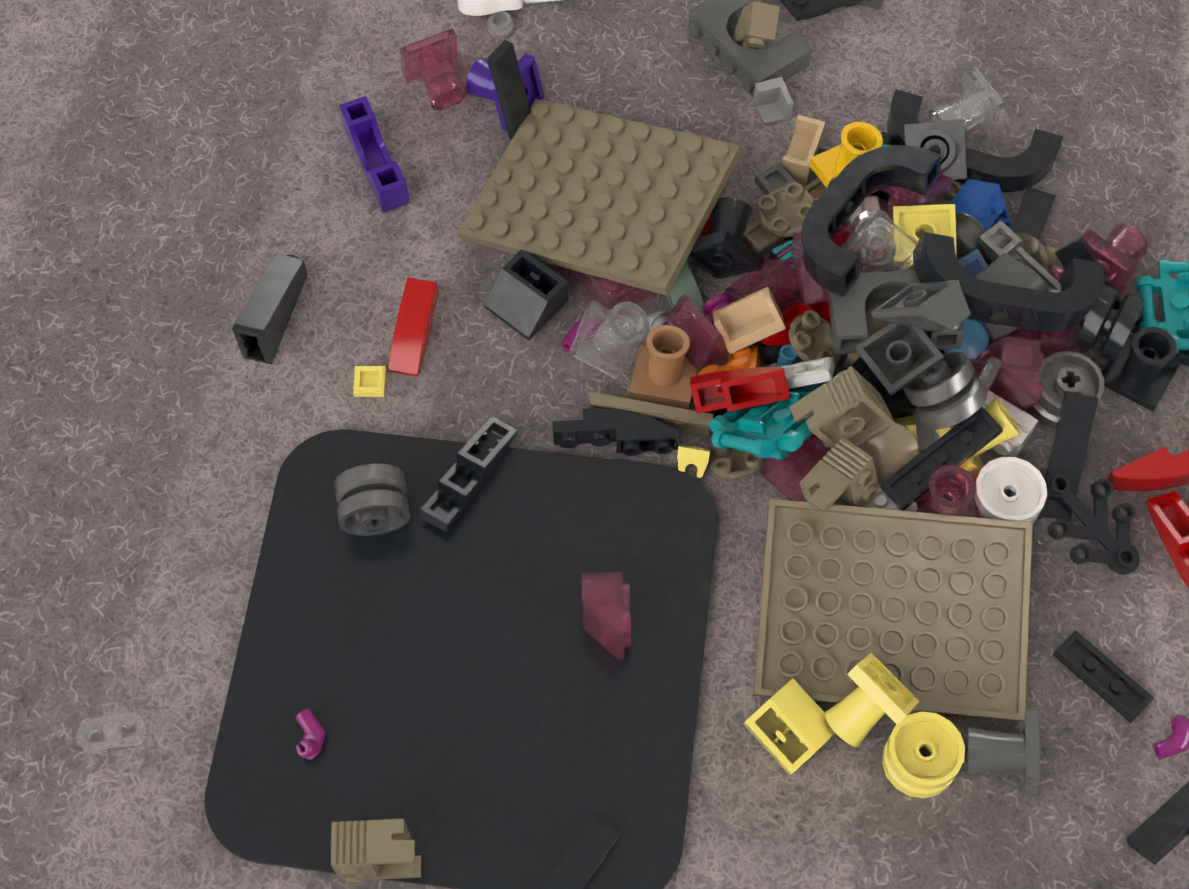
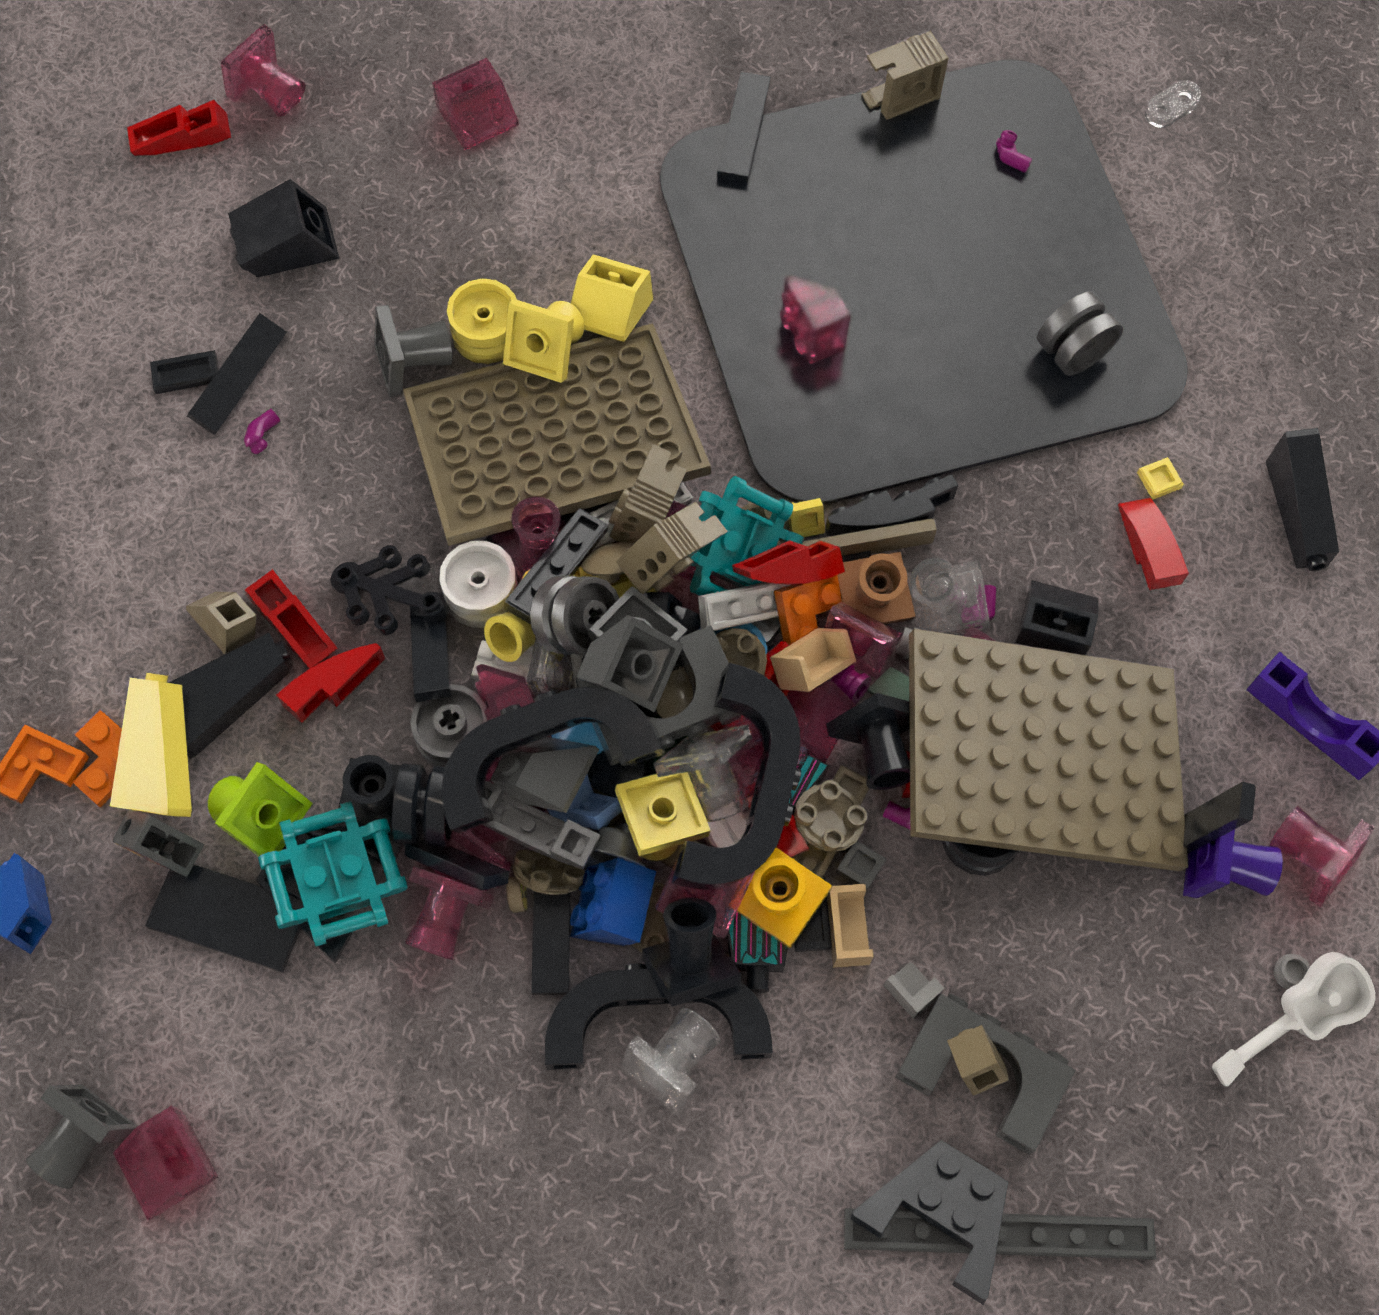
camera: 155 degrees right, 5 degrees up
(468, 474) = (1009, 412): black slope -> none
(1103, 676) = (340, 463): black tile -> none

